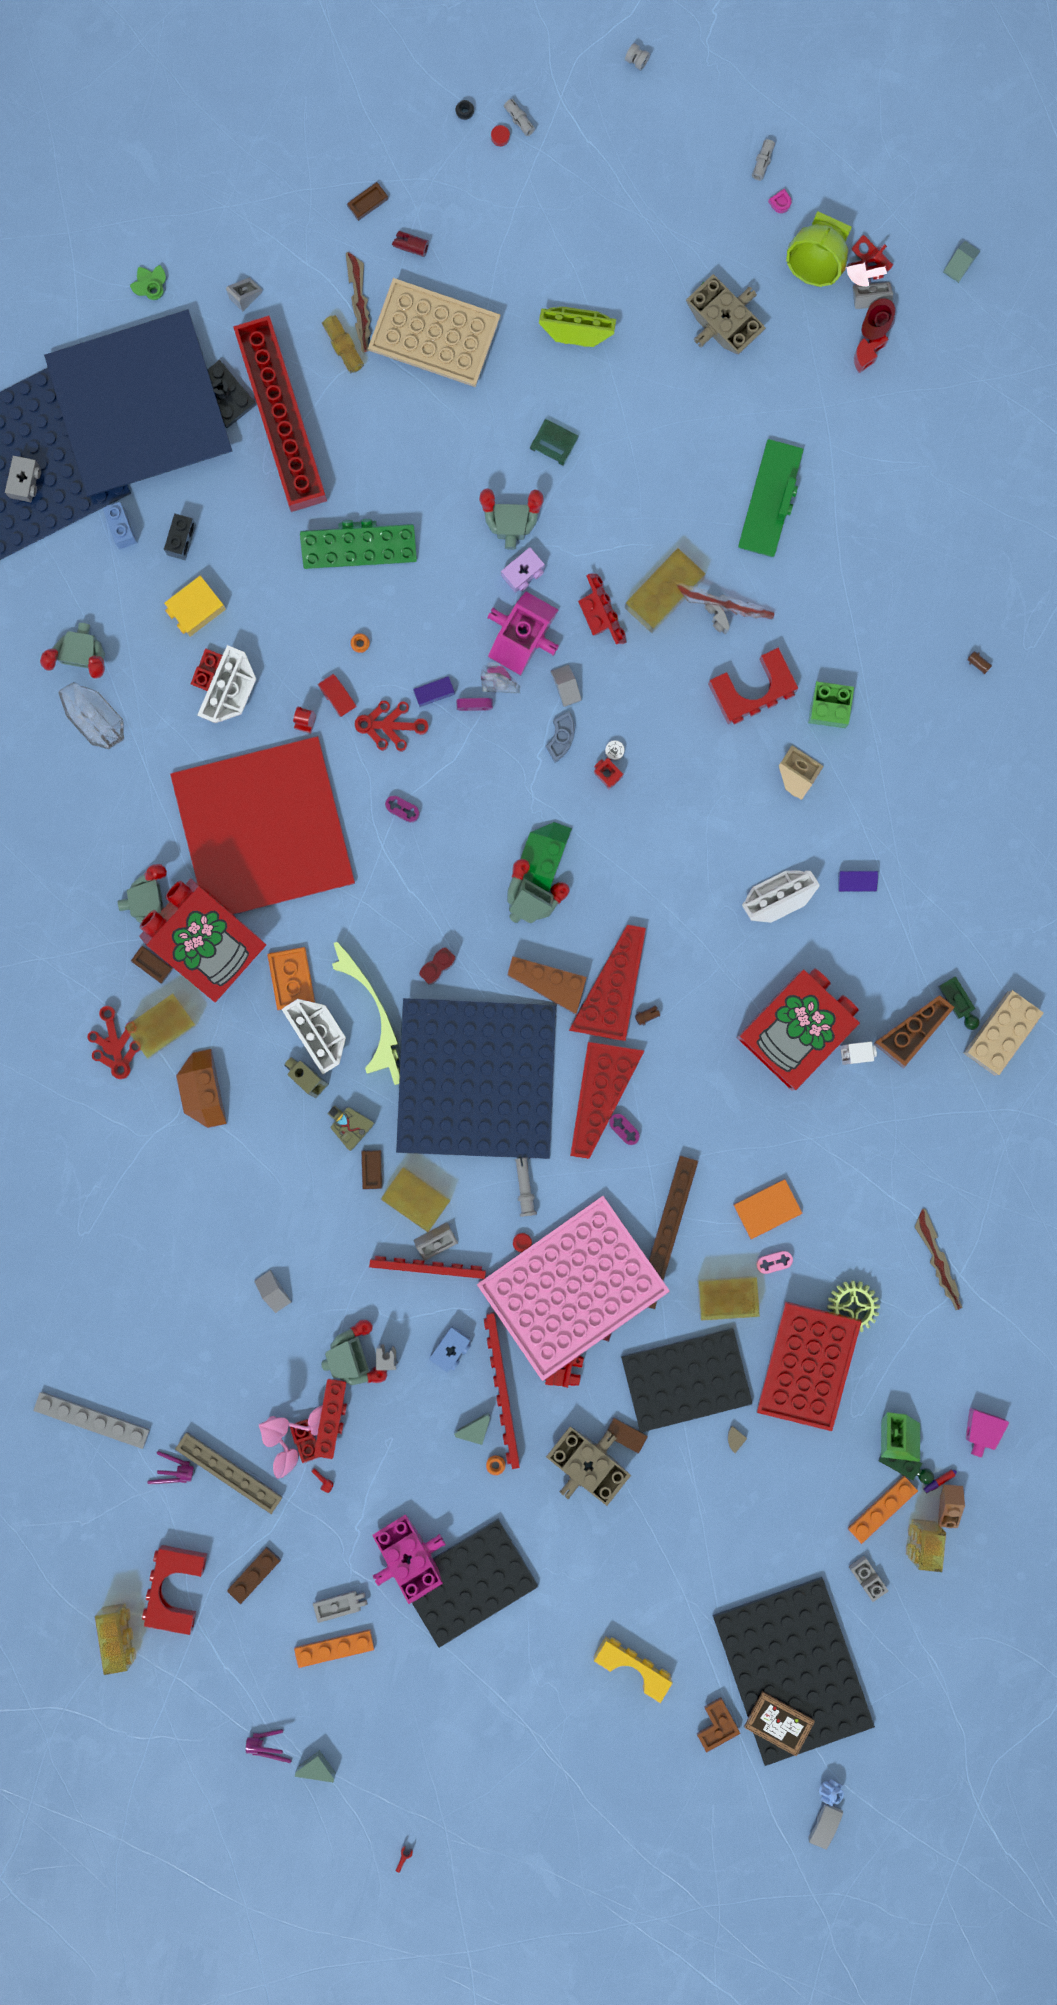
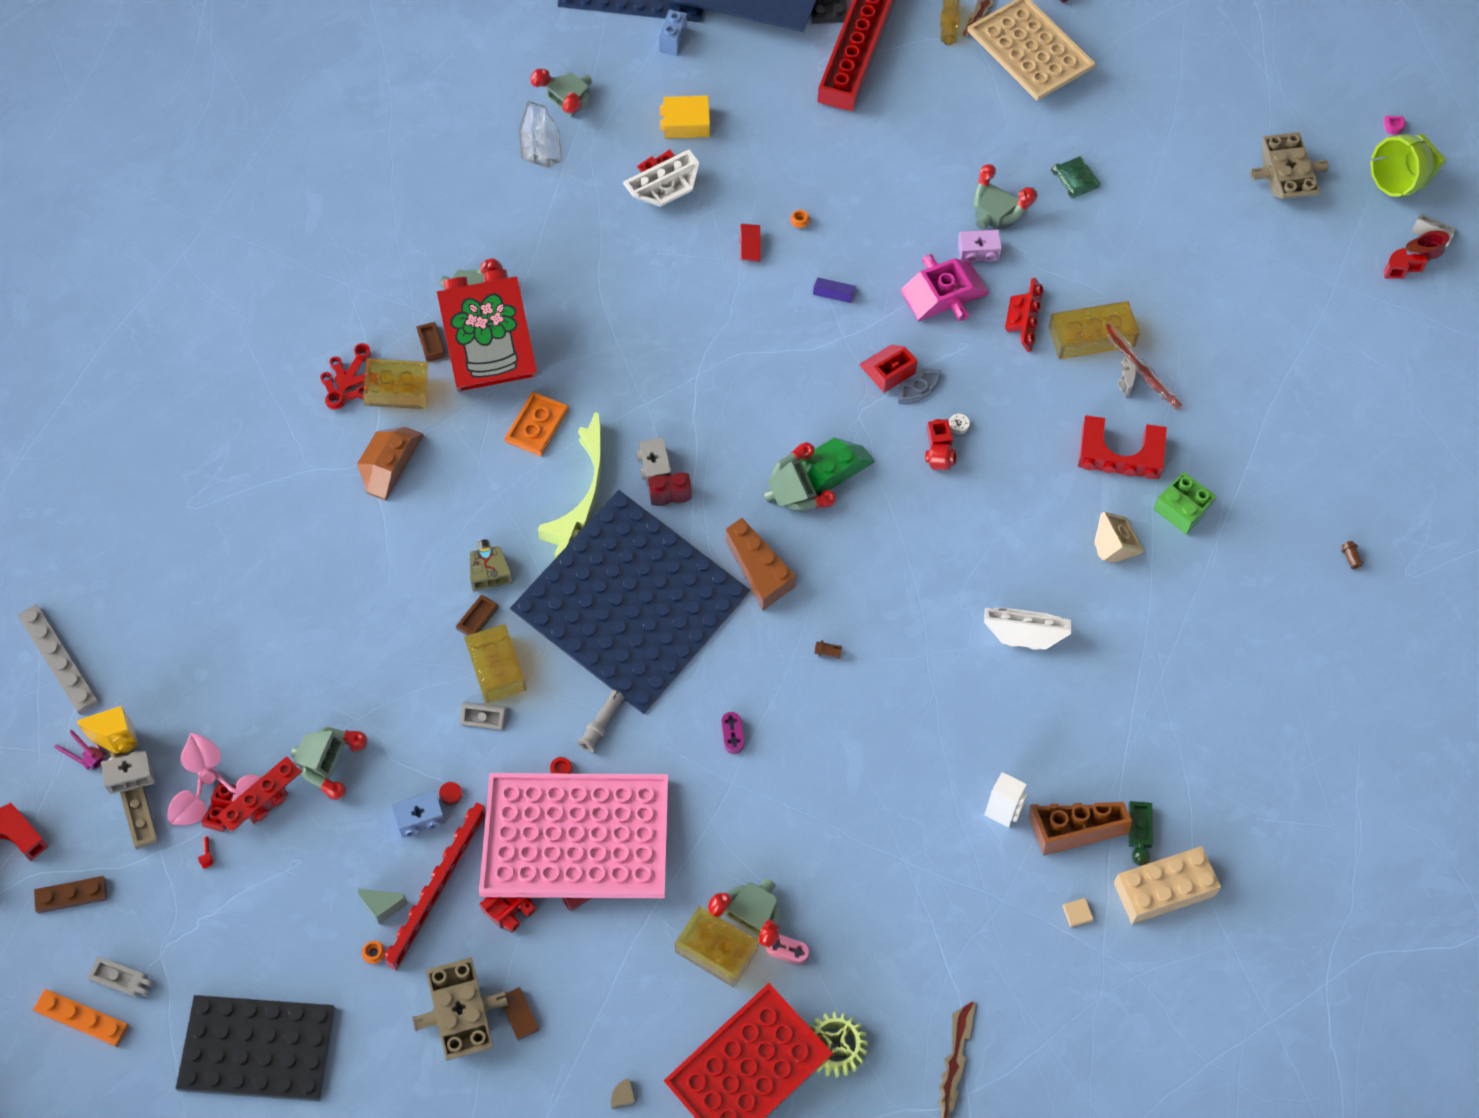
camera: 35 degrees right, 25 degrees down
(179, 536) = (714, 65): black brick -> none
(190, 1452) = (110, 730): none -> yellow slope
(219, 1480) = (127, 772): none -> light grey brick
(263, 826) = (610, 300): red baseplate -> none
(272, 1292) = (304, 659): light grey slope -> none
(304, 719) = (709, 240): red leg -> none
(310, 1081) = (482, 495): olive torso -> none
(317, 1032) = (523, 469): white wedge -> none
(358, 545) = (853, 151): green bracket -> none
(383, 1360) = (349, 776): light grey hinge -> none
(388, 725) = (777, 289): red plant -> none
(398, 1543) = (220, 972): dark pink slope -> none
(400, 813) = (741, 355): magenta beam -> none
(402, 940) = (653, 451): none -> light grey brick
(434, 1268) = (451, 724): red plate -> none
(458, 1316) = (450, 793): none -> red tile
(474, 704) = (861, 316): magenta beam -> none
(497, 679) = (893, 301): clear wedge -> none
(527, 737) = (890, 367): none -> red slope
(566, 685) = (952, 352): light grey slope -> none
(576, 325) = (1151, 107): lime wedge -> none
(602, 1085) = (741, 681): red wing -> none
(611, 998) = (805, 614): red wing -> none
(622, 792) = (940, 456): none -> red head
(672, 1216) = (714, 841): reddish brown plate -> none
(686, 1380) = (618, 1003): black plate -> none
(734, 1251) = (751, 908): none -> sand green torso
(763, 159) = (1395, 90): light grey pin -> none
(767, 1209) = (816, 895): orange tile -> none
(771, 498) = (1239, 320): green bracket -> none
(800, 1028) = (963, 745): brick -> none
(857, 881) = (1111, 662): dark purple slope -> none
(861, 273) = (1435, 204): brick -> none
(874, 254) = (1455, 200): red bracket -> none
(953, 1094) = (1077, 912): none -> tan tile

